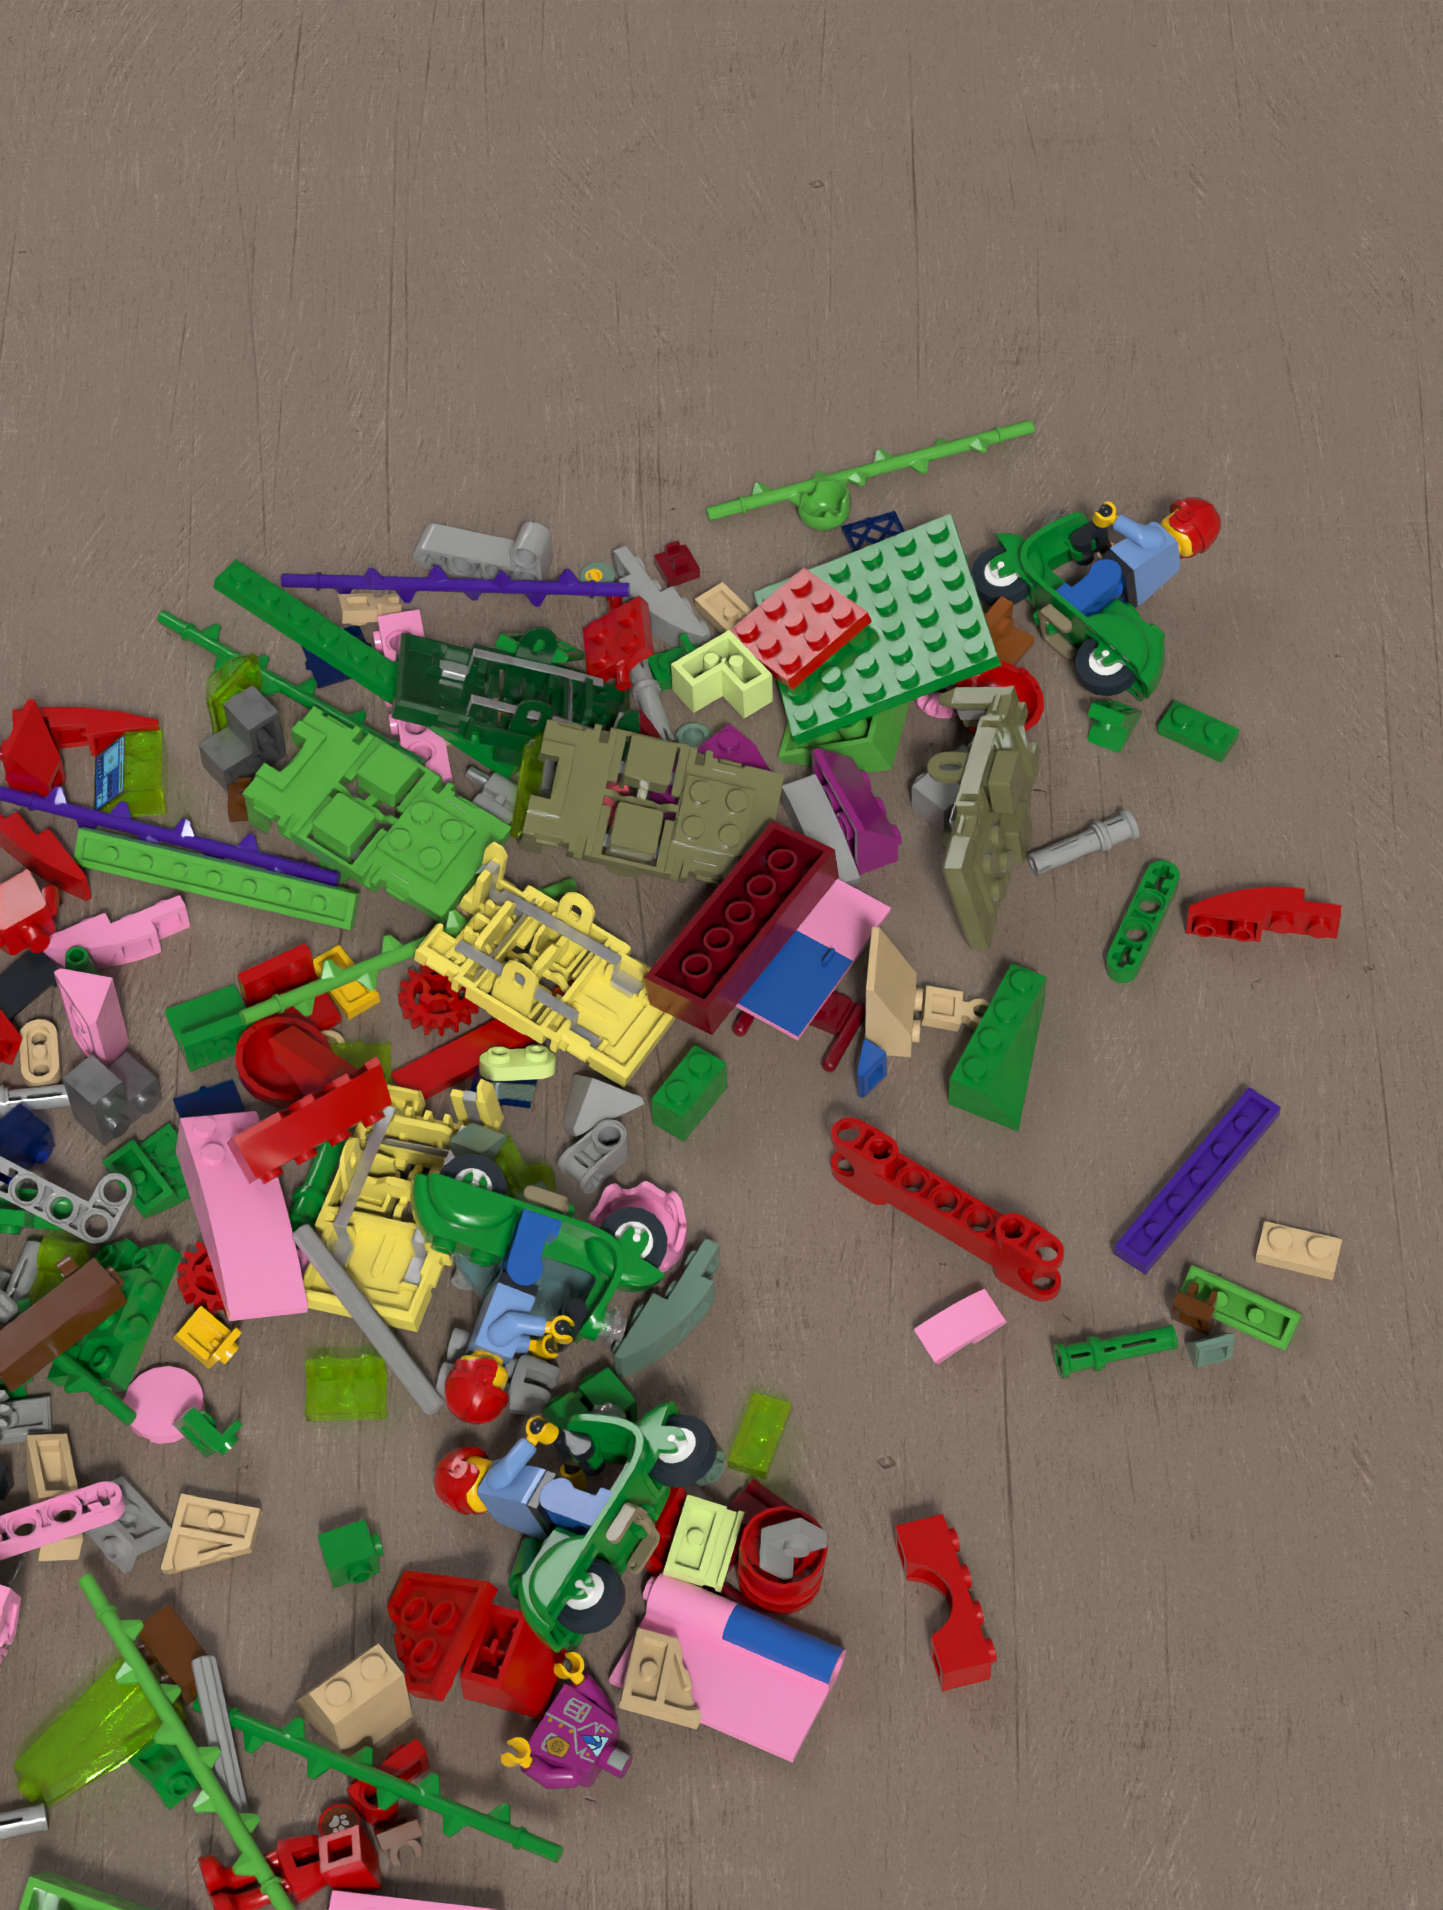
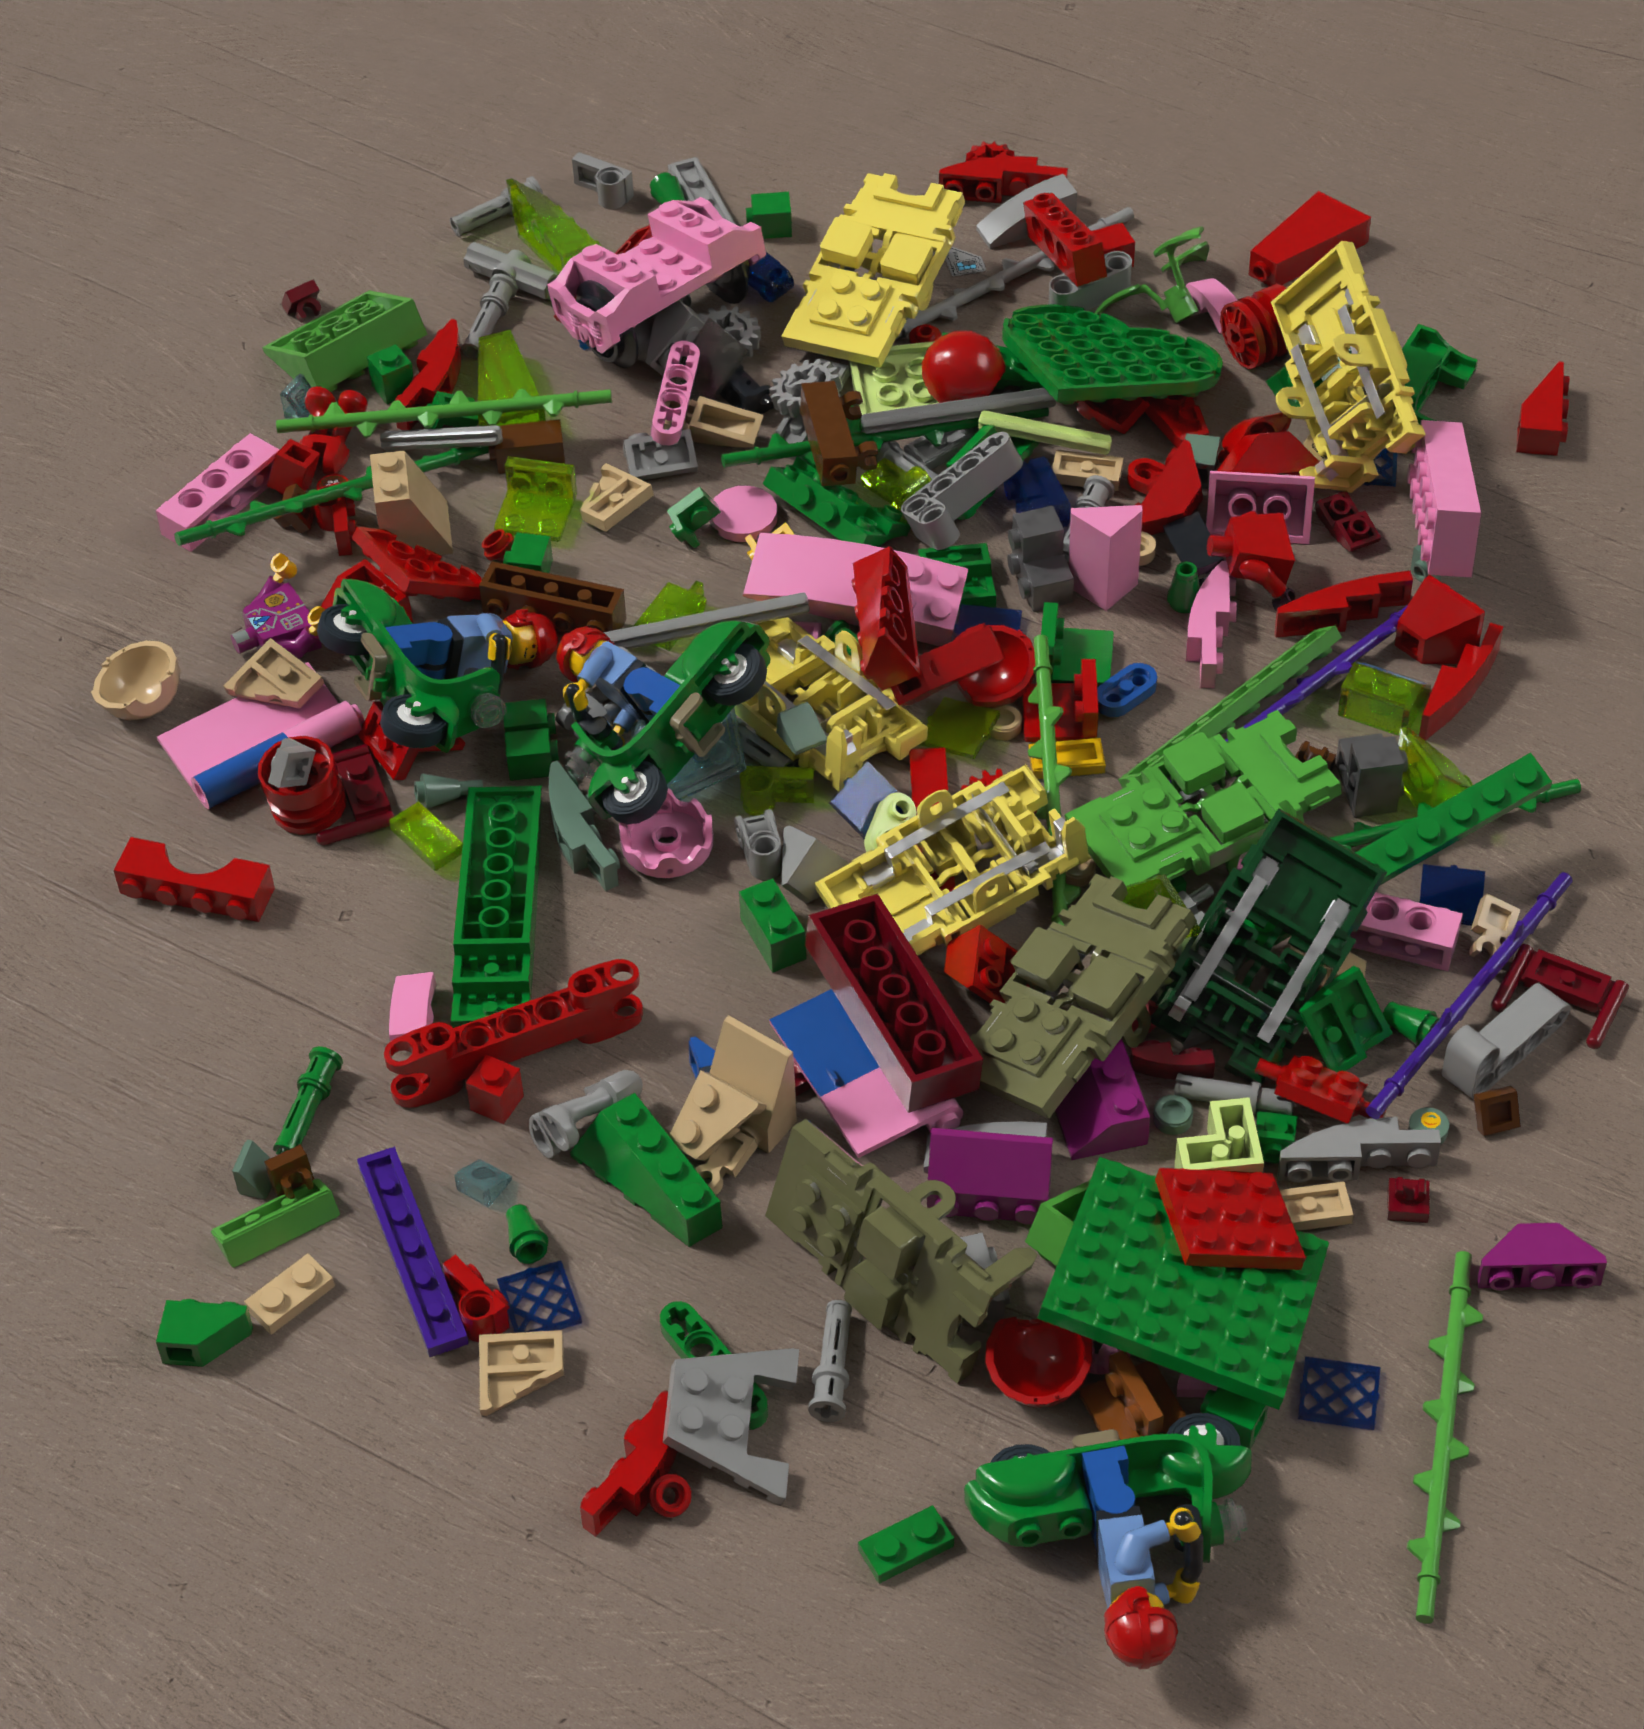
camera: 120 degrees right, 5 degrees down
(96, 1822) = (438, 370): none -> red slope
(136, 1866) = (390, 372): none -> green brick
(233, 958) = (1120, 692): none -> blue plate
(264, 1598) = (537, 497): none -> clear neon green bracket
(344, 1613) = (497, 544): none -> red plate
(394, 535) = (1569, 982): none -> dark red plate
(403, 1486) = (562, 599): none -> reddish brown brick
(502, 617) = (1410, 1021): none -> green cone
(561, 540) = (1497, 1110): none -> reddish brown tile
(642, 913) = (980, 962): none -> red slope
(686, 467) = (1541, 1259): none -> magenta slope
(703, 1543) = (358, 745): yellowish green plate -> none
(744, 1810) = (138, 680): none -> tan cylinder
(803, 1325) = (496, 902): none -> green slope
(826, 507) = (1404, 1350): bright green hair -> none
(935, 1008) = (711, 1116): none -> tan wing
(951, 1129) = (555, 1126): none -> light grey piece
(1005, 1194) = (494, 1089): none -> red brick
(1092, 1172) = (481, 1181): none -> clear light blue slope
(1112, 723) = (958, 1454): green slope -> none
(1125, 1106) = (526, 1237): none -> green cone
(1149, 1057) = (530, 1274): none -> clear blue window
(1191, 880) = (712, 1412): none -> light grey wing
(1210, 1101) = (476, 1299): none -> red plate
(1244, 1045) = (517, 1365): none -> tan wing
(1275, 878) = (682, 1495): none -> red plate
(1388, 1282) = (200, 1331): none -> green slope

